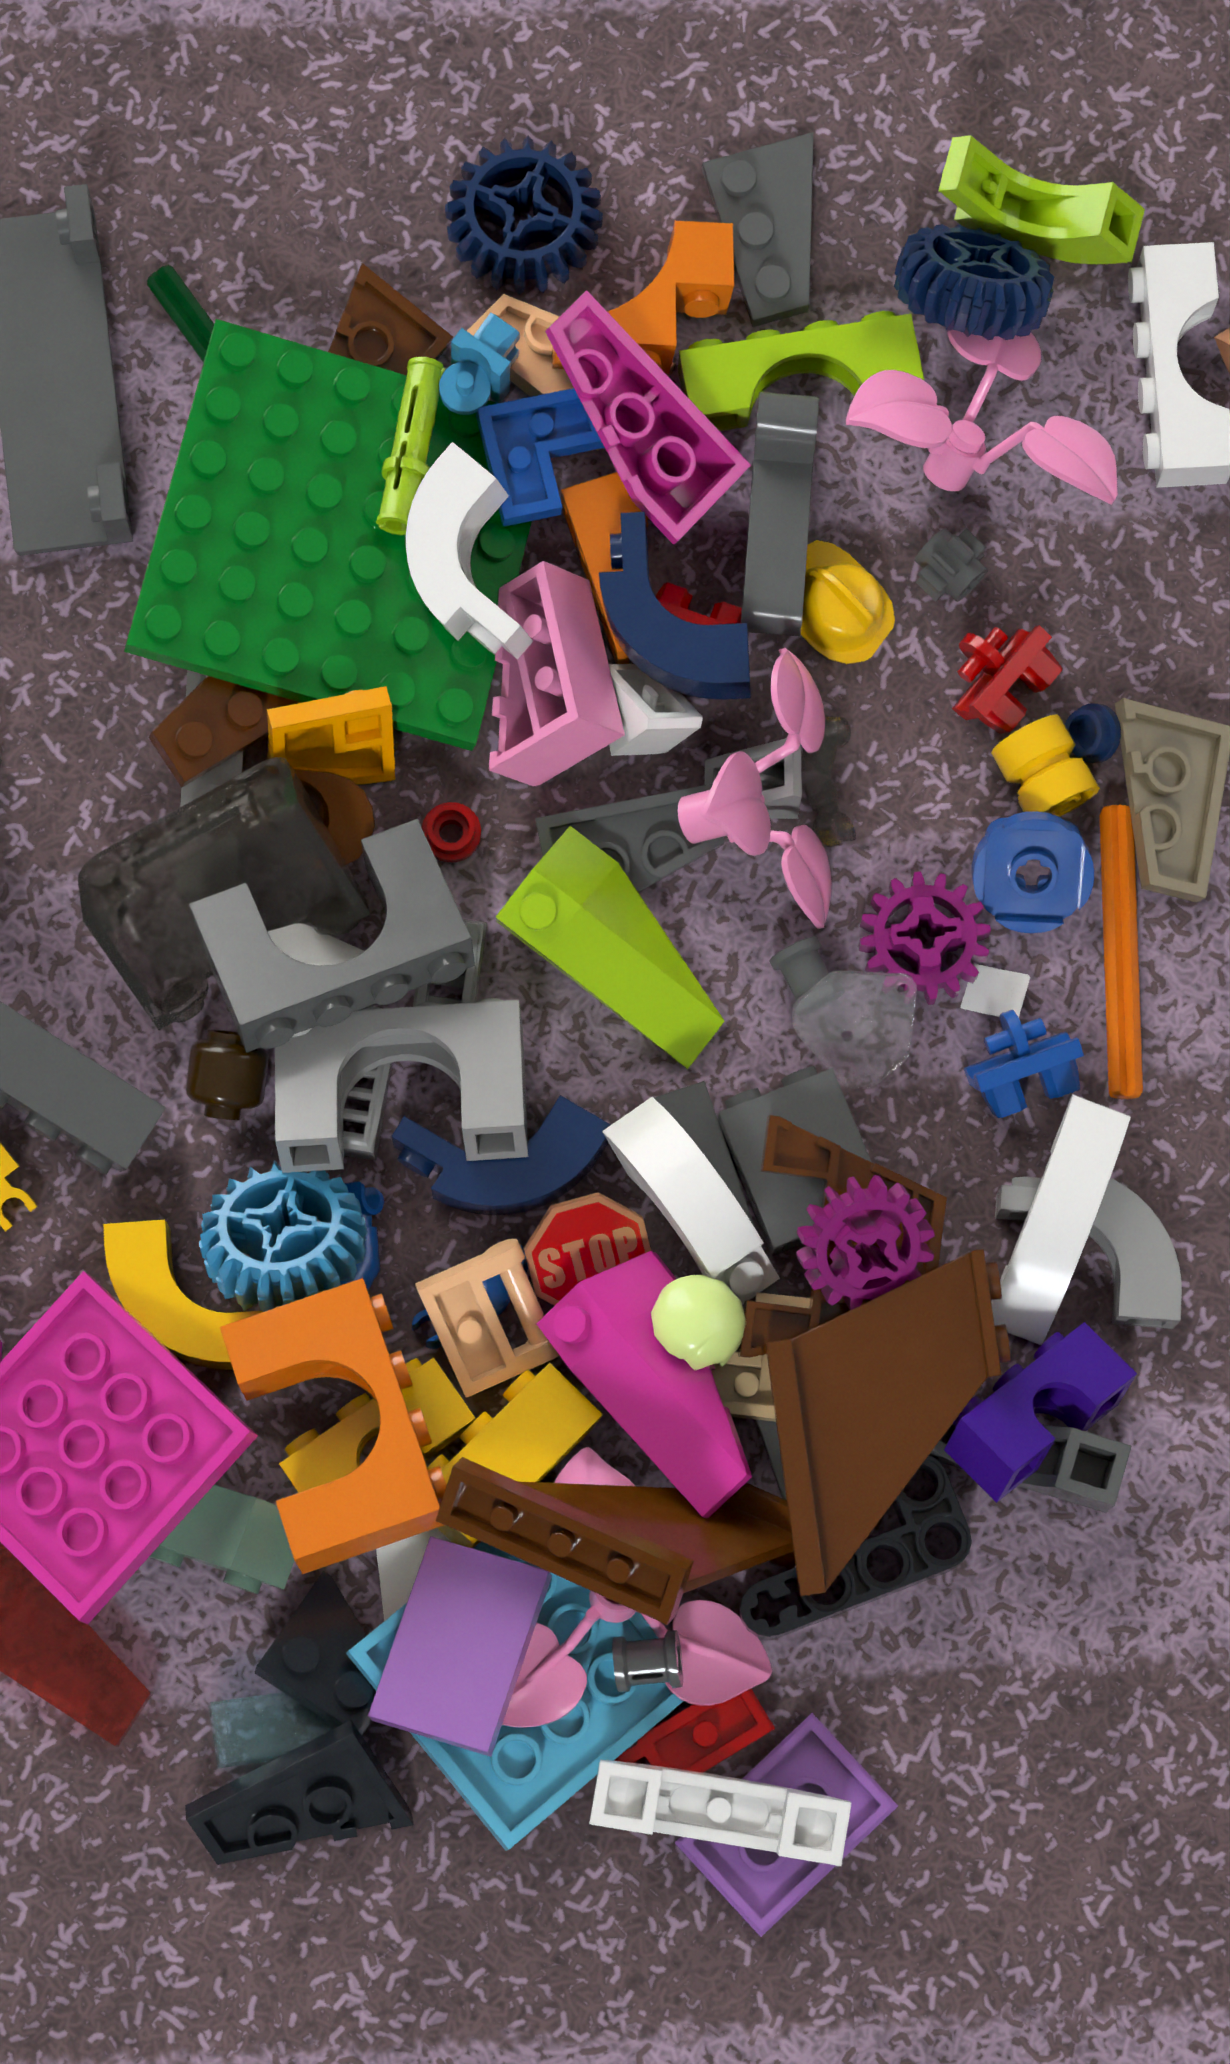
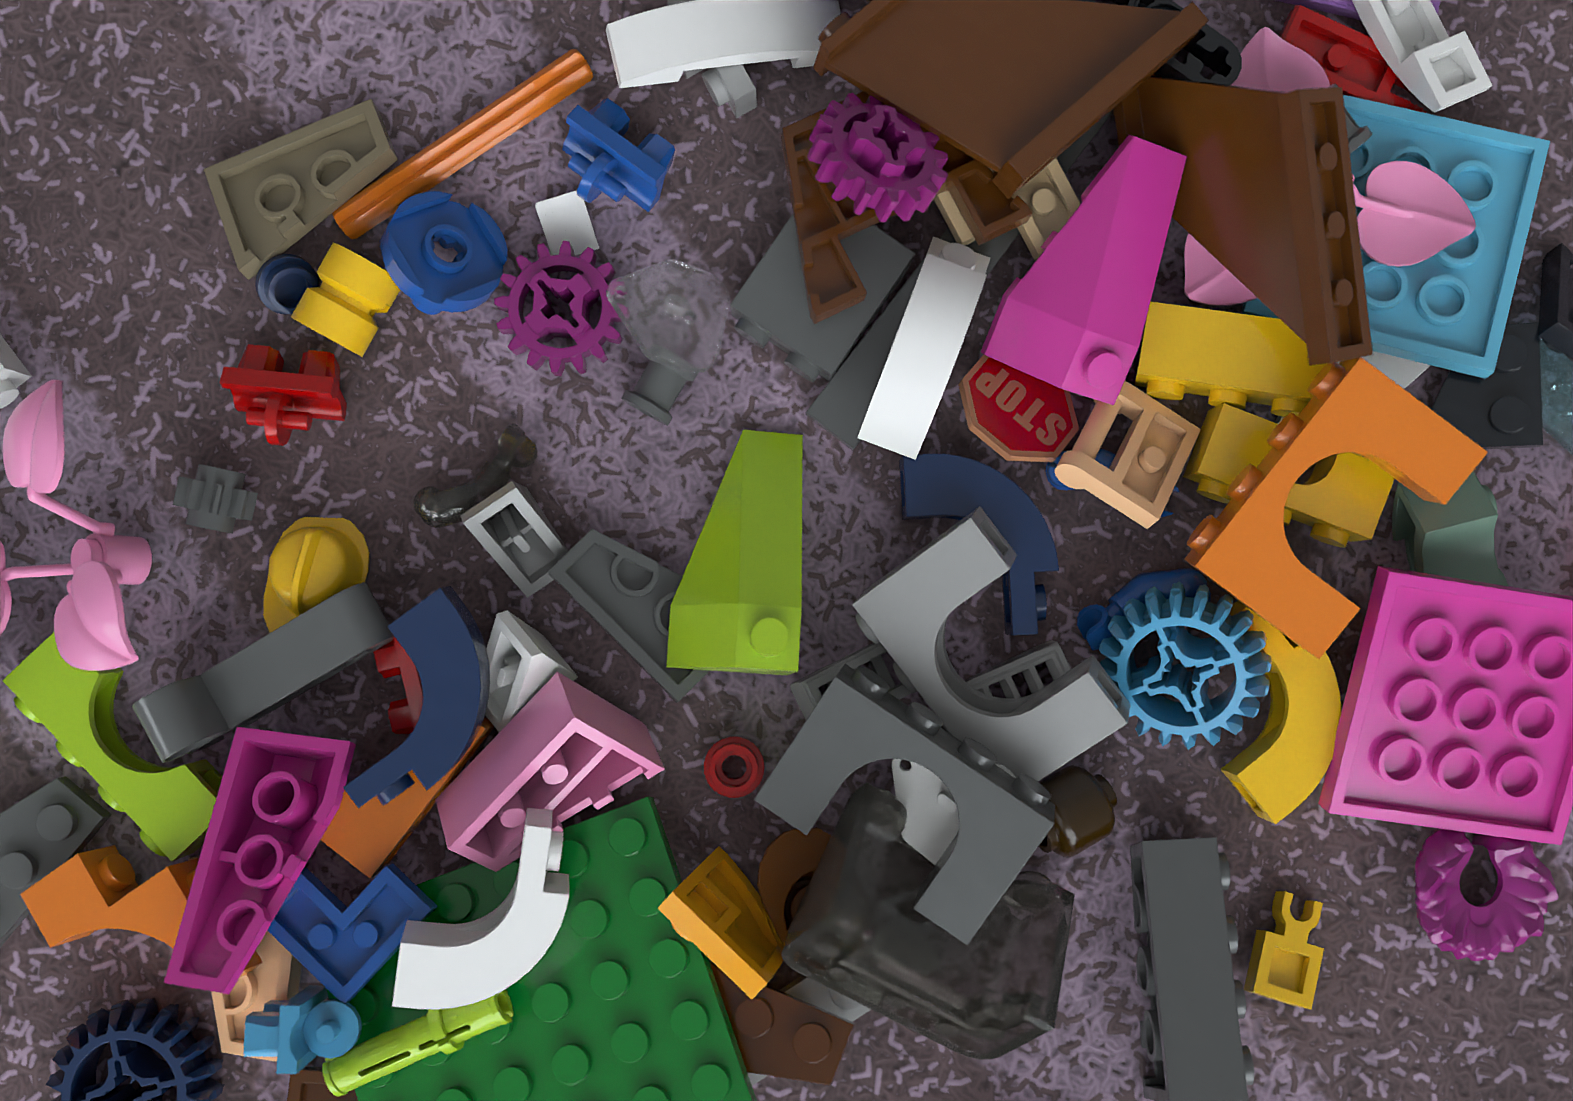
camera: 125 degrees left, 10 degrees up
(460, 1646) = (1450, 275): medium lavender tile -> none
(699, 1320) = (1029, 264): yellowish green hair -> none
(736, 802) = (562, 519): bright pink plant -> none

